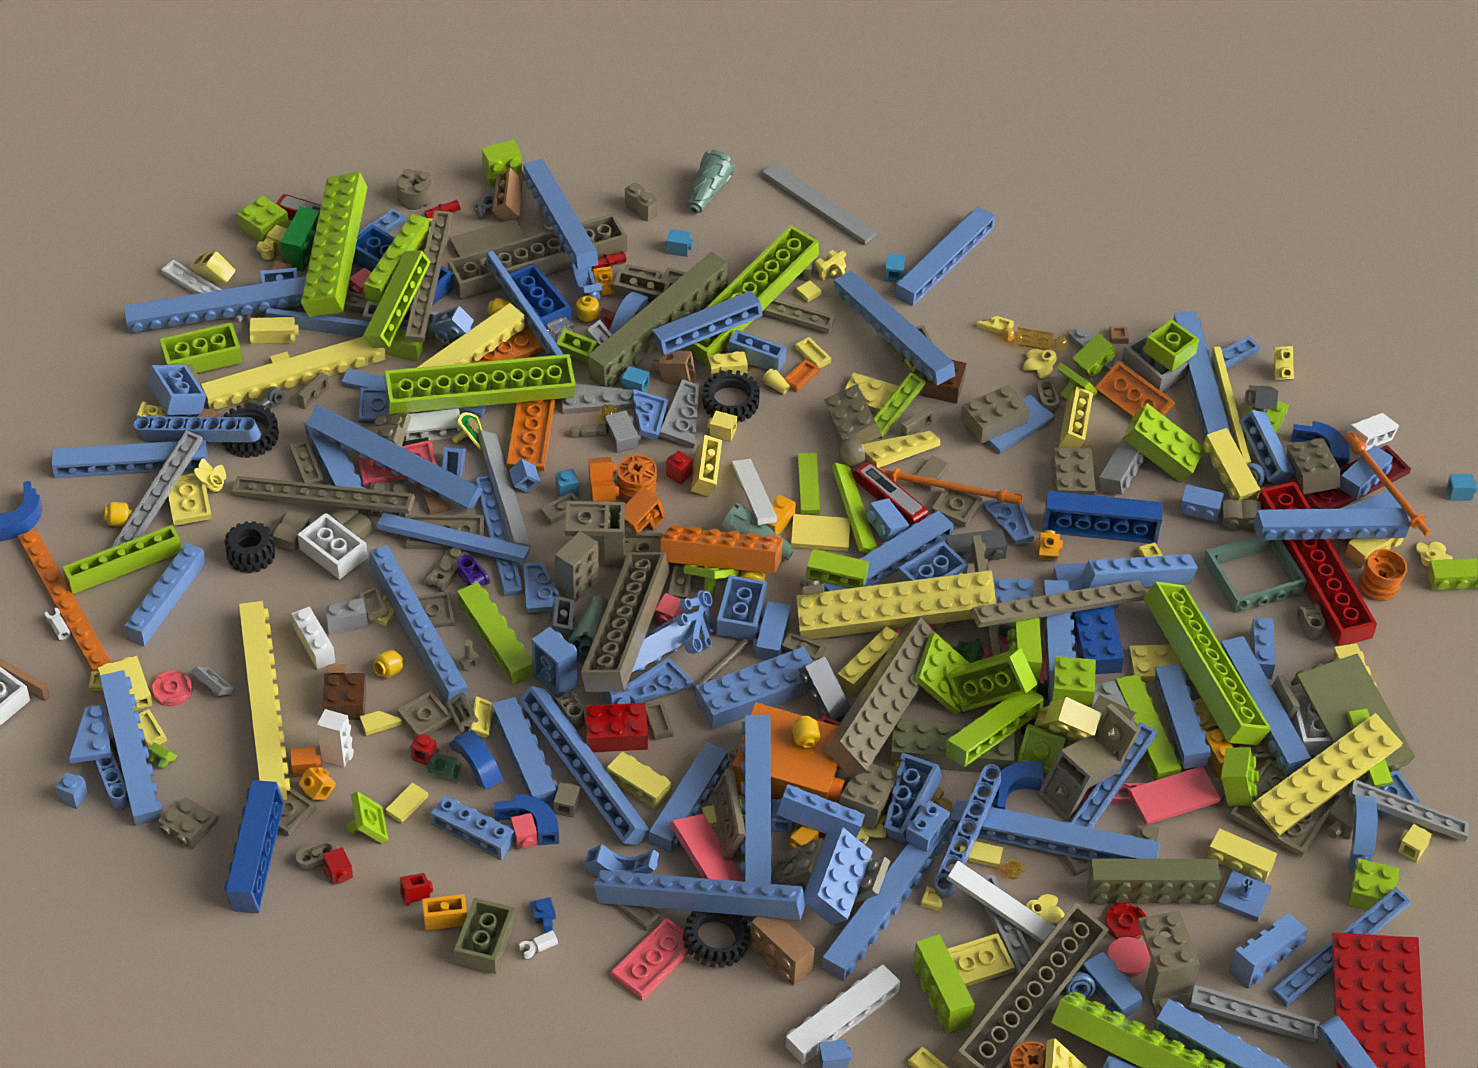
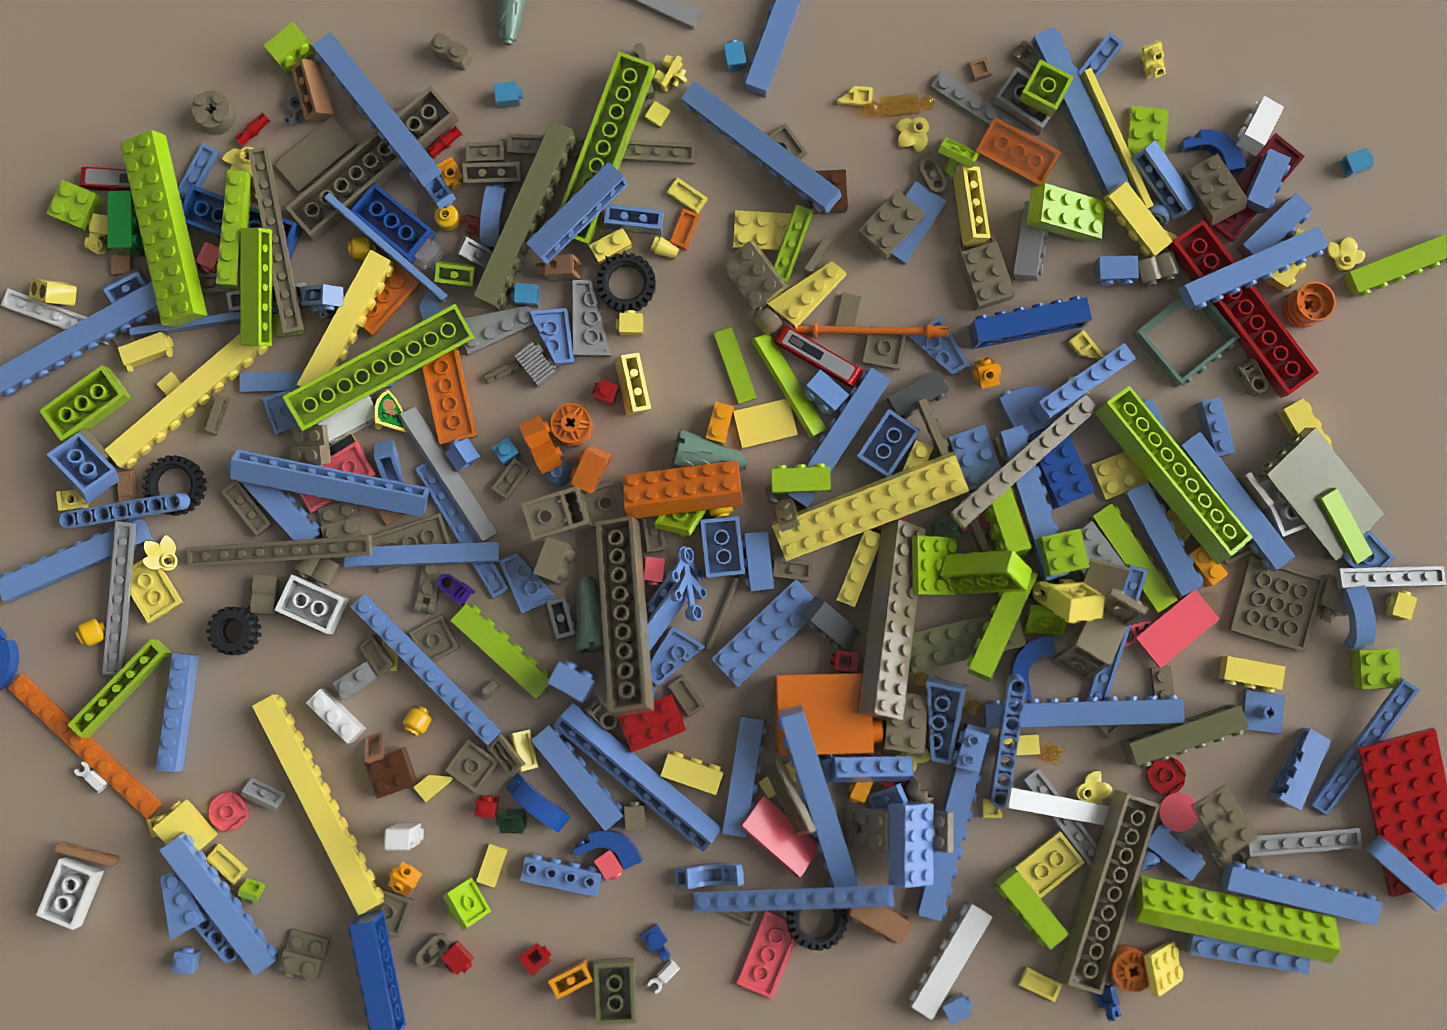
camera: 15 degrees left, 35 degrees up
(272, 396) = (181, 436): dark grey plate -> none
(303, 759) = (381, 858): orange brick -> none
(611, 409) = (515, 344): clear yellow plate -> none
(754, 491) = (690, 405): white tile -> none
(806, 731) = (836, 700): yellow head -> none
(1094, 355) = (967, 113): lime brick -> none
(1239, 776) = (1234, 598): lime brick -> none
(1262, 397) = (1148, 122): dark grey brick -> none
(1326, 774) = (1314, 569): light yellow plate -> none
(1359, 448) = (1258, 161): orange bar -> none

